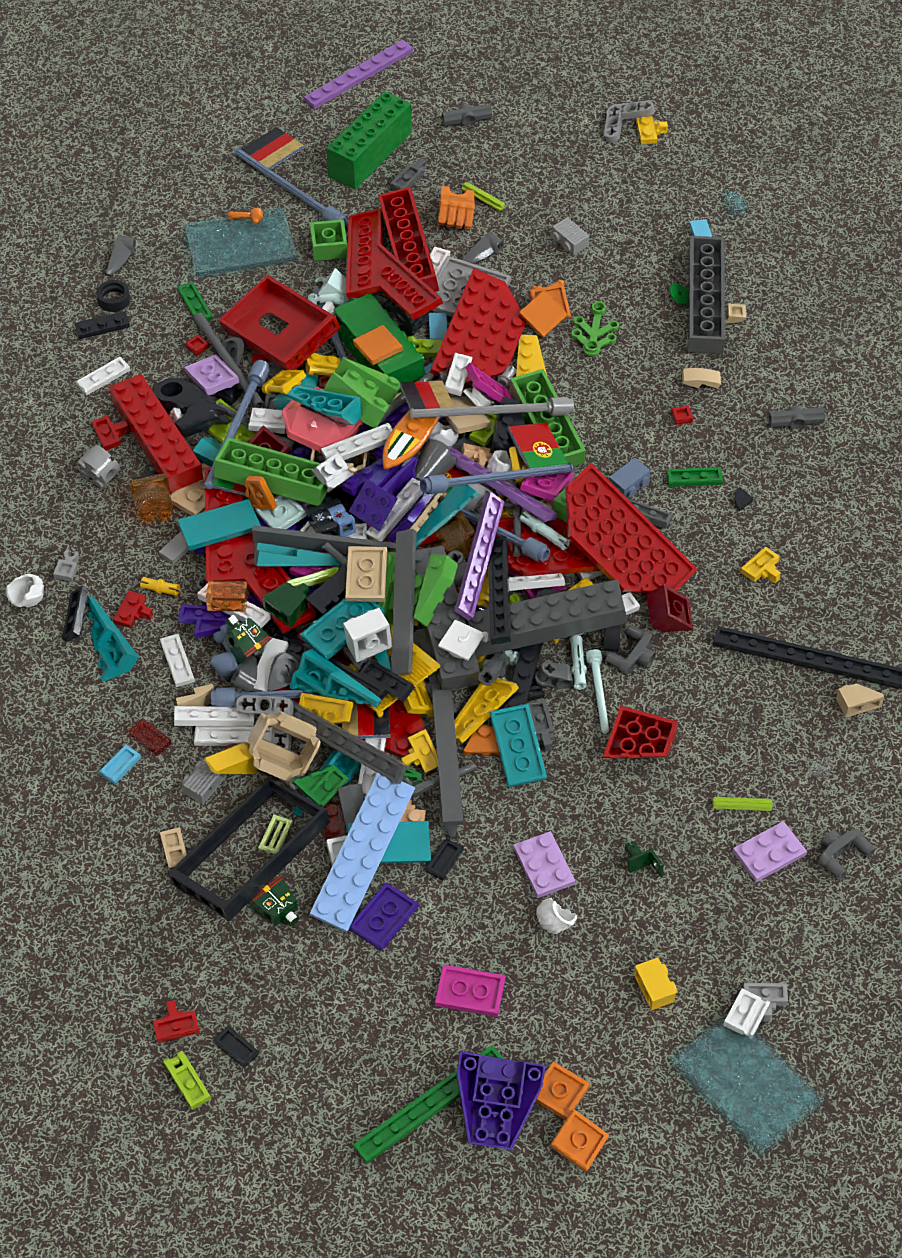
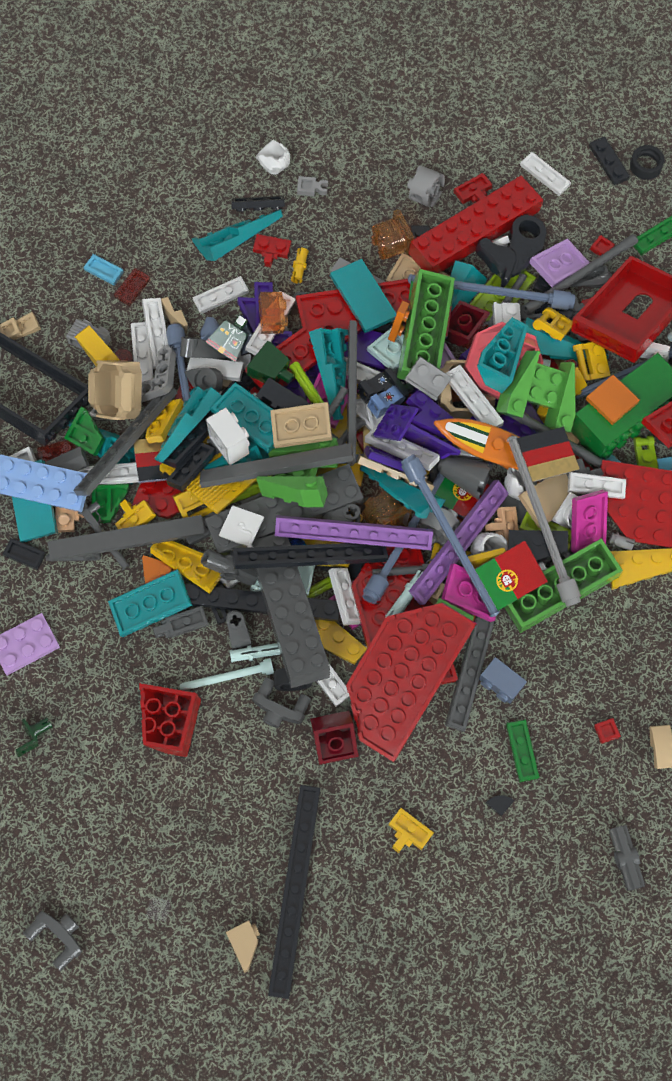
camera: 80 degrees right, 15 degrees up
(269, 849) = (36, 406): yellowish green tile -> none
(742, 803) = (107, 830): lime axle -> none
(769, 851) = (53, 861): lavender plate -> none

